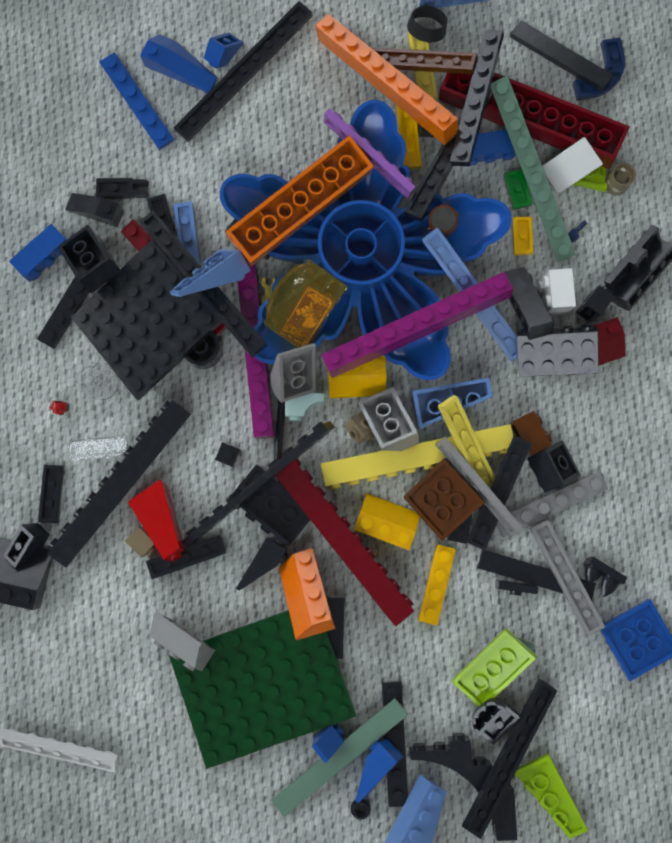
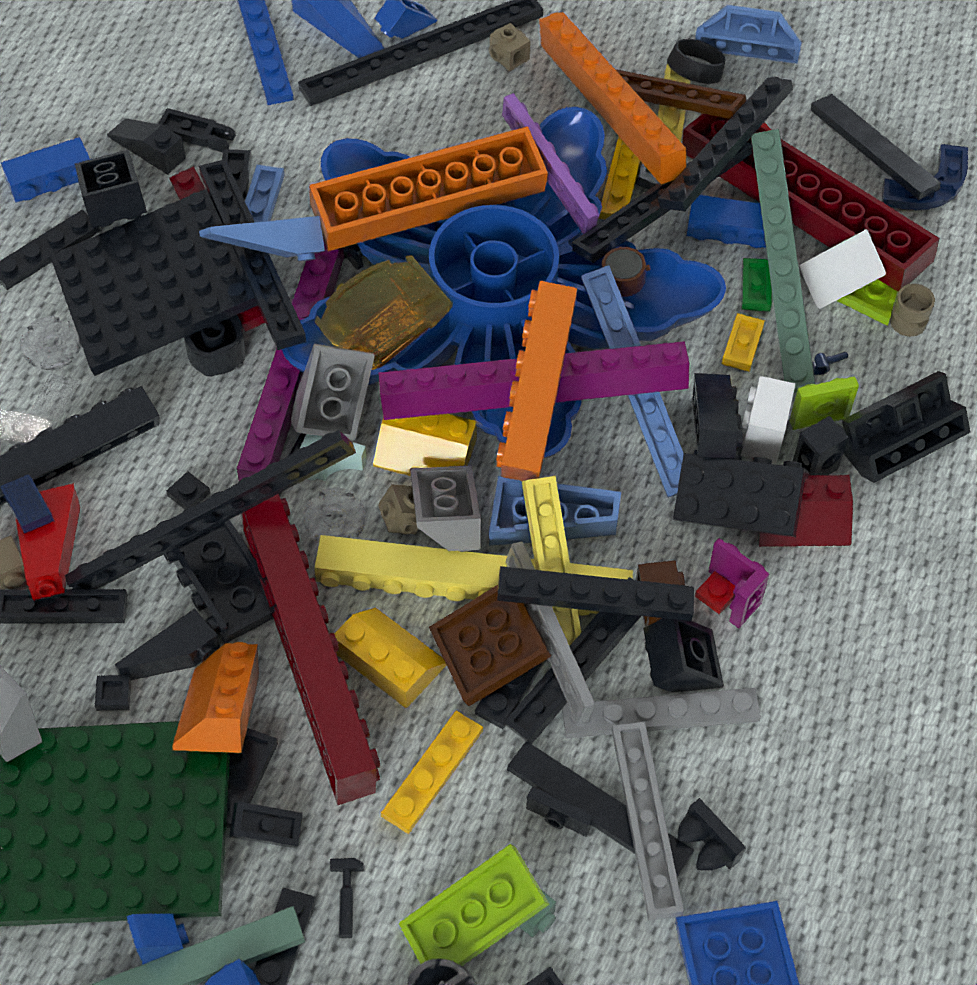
camera: 15 degrees right, 25 degrees down
(139, 505) = (26, 503): none -> dark blue tile
(239, 600) = (112, 692): none -> black plate
(301, 52) = (509, 47): none -> dark tan brick
(359, 653) = (265, 824): none -> black plate
(416, 672) = (346, 866): none -> black piece
(429, 339) = (539, 379): none -> orange brick
(500, 457) = (595, 593): none -> black plate
(558, 415) = (716, 592): none -> red plate
(583, 409) = (745, 574): none -> magenta bracket
(594, 262) = (823, 400): none -> lime plate

